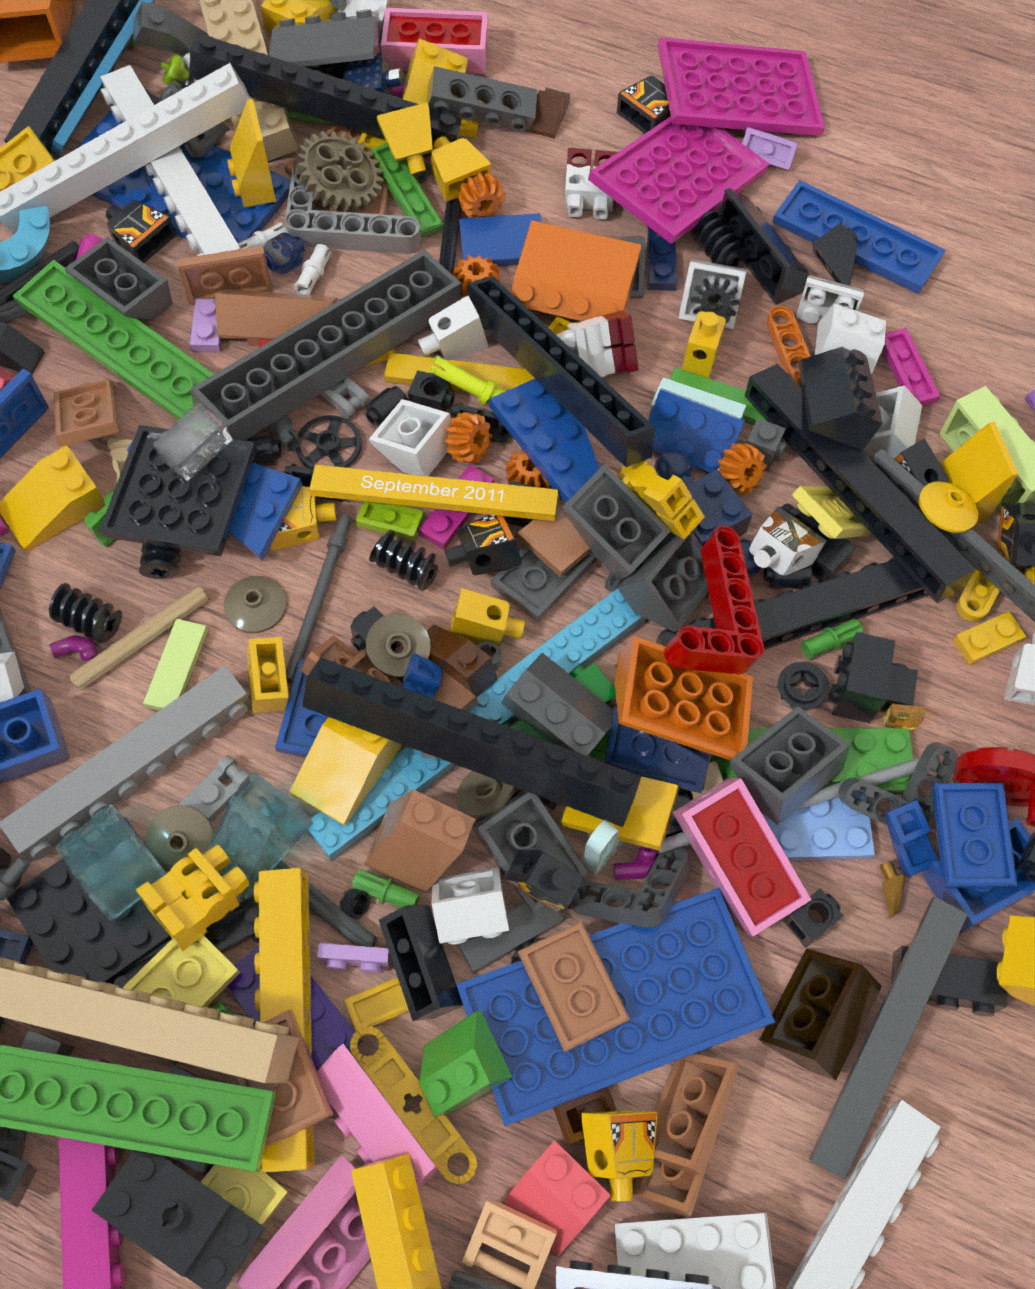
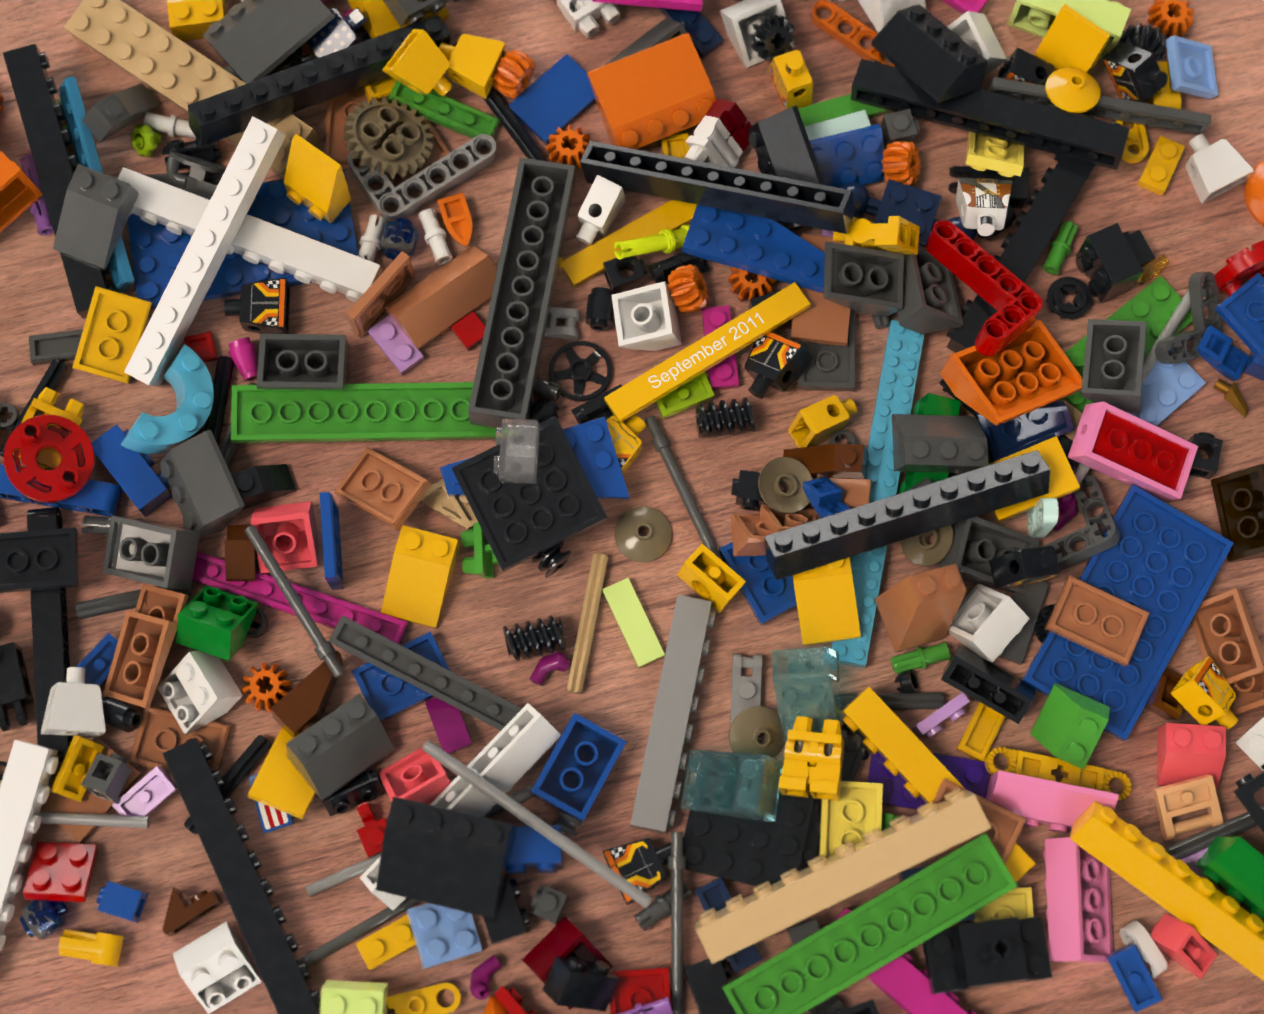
camera: 40 degrees left, 10 degrees up
(68, 229) = (202, 345): none -> red tile
(73, 77) = (93, 216): none -> dark grey slope
(342, 266) = (456, 217): none -> orange plate
(640, 383) = (785, 150): none -> black slope

